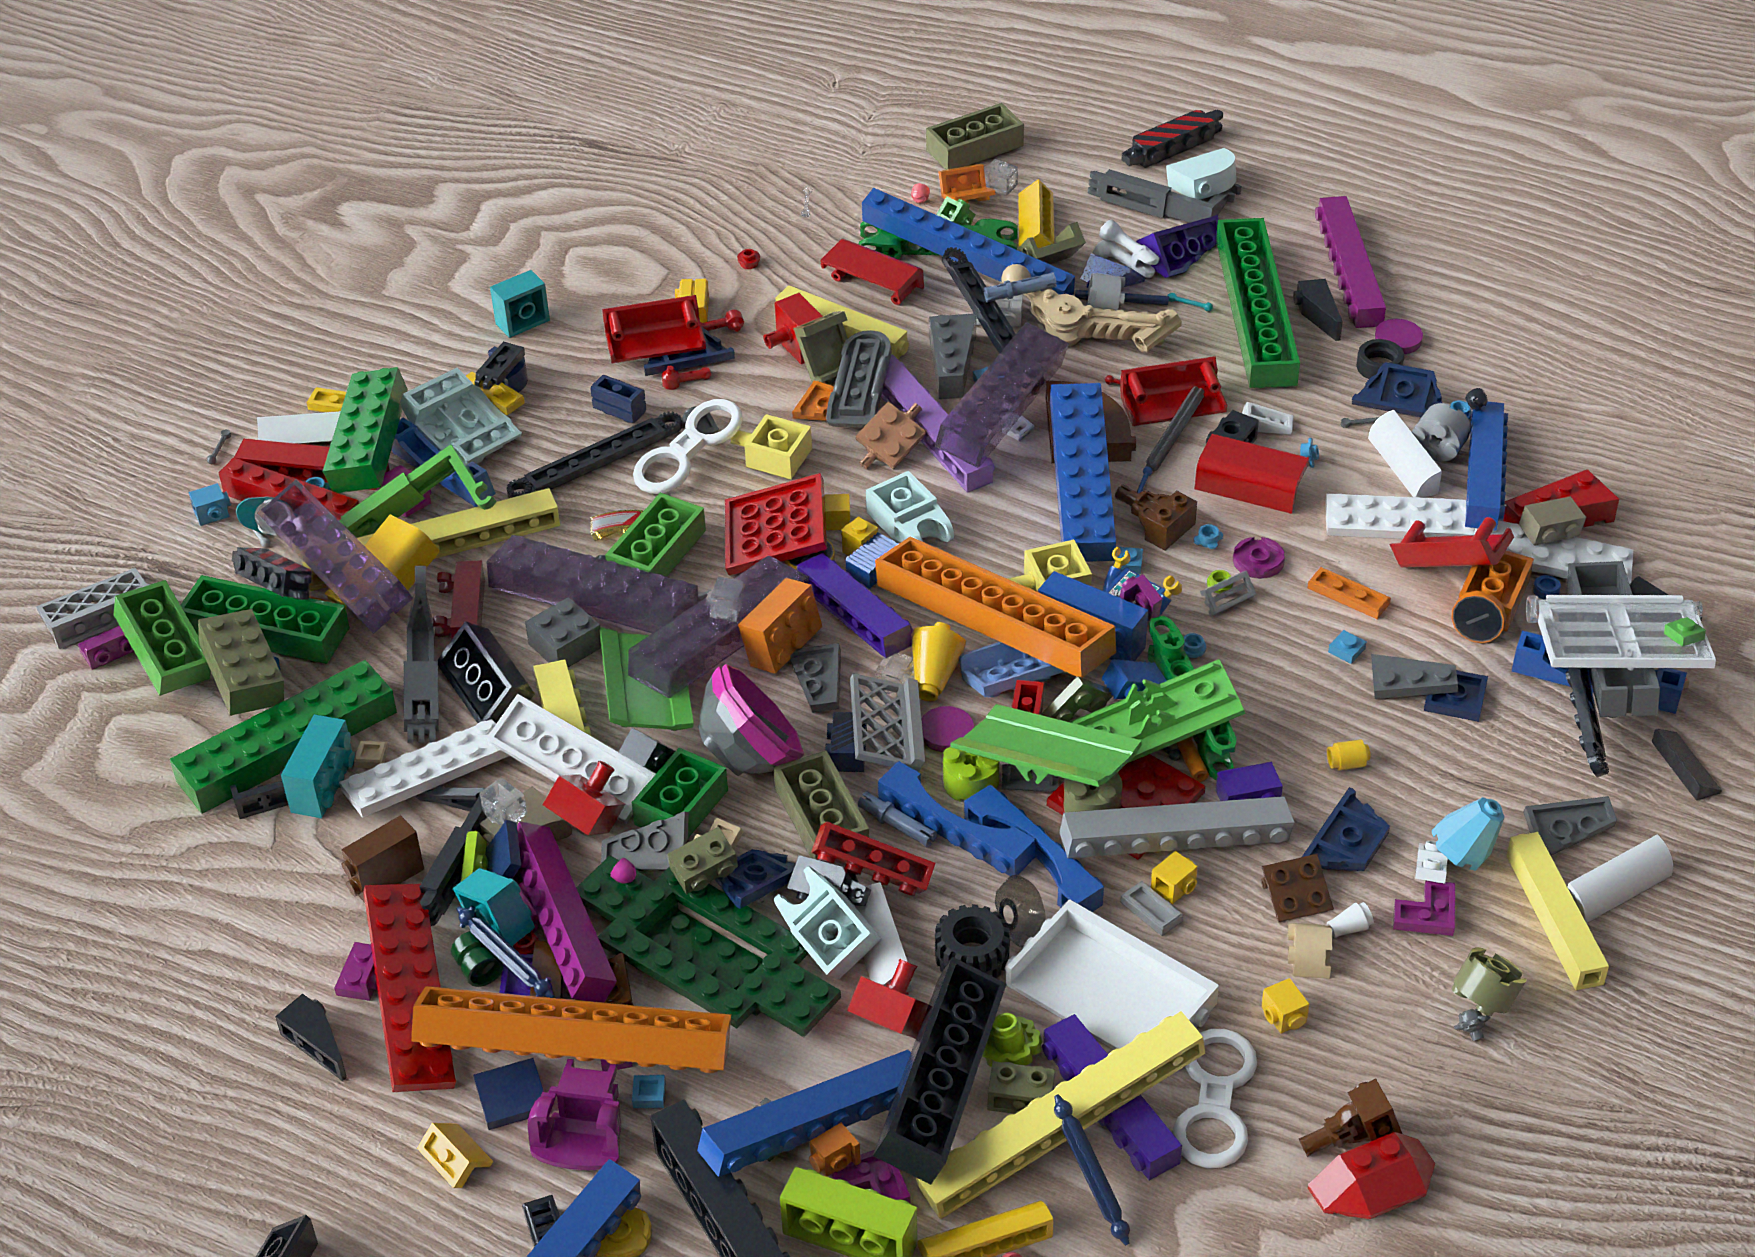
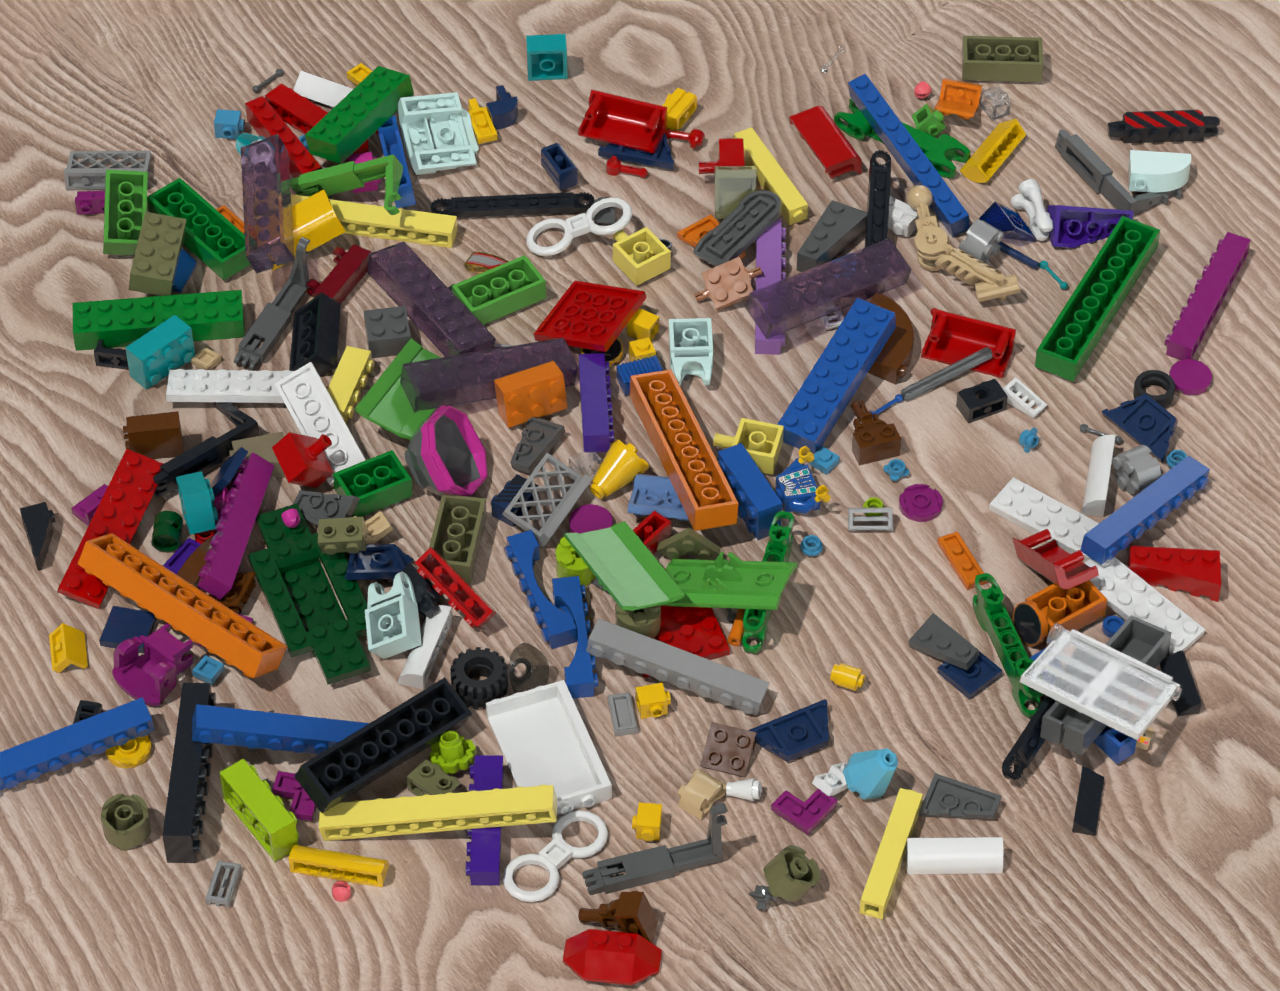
camera: 30 degrees right, 5 degrees up
(273, 572) = (226, 197): black hinge -> none
(474, 854) = (213, 462): lime plate -> none
(499, 365) = (490, 102): black hinge -> none
(503, 802) = (251, 434): clear brick -> none
(505, 952) = (180, 535): dark blue wheel -> none
(645, 750) = (370, 441): brick -> none
(726, 599) = (495, 357): clear brick -> none
(748, 259) = (748, 90): red plate -> none
(834, 1150) = (281, 762): orange brick -> none
(888, 814) = (501, 563): sand blue pin -> none
(890, 1003) = (386, 686): red brick -> none
(1024, 286) = (902, 205): sand blue pin -> none
(1066, 245) = (974, 187): olive panel -> none
(1091, 1169) = (427, 856): dark blue wheel -> none
(1123, 674) = (741, 546): blue brick -> none
(1143, 593) = (787, 491): magenta bracket -> none
(1249, 783) = (758, 663): dark purple brick -> none
(1250, 473) = (966, 433): red piece -> none
(1319, 306) = (1148, 319): black slope -> none
(1337, 1042) = (658, 862): none -> dark grey hinge
(1347, 646) = (923, 599): dark azure plate -> none
(1473, 395) = (1184, 455): black hinge -> none
(1519, 667) = (1004, 637): none -> green piece
(1552, 520) = (1149, 577): dark tan brick -> none
(1684, 631) = (1138, 703): bright green plate -> none

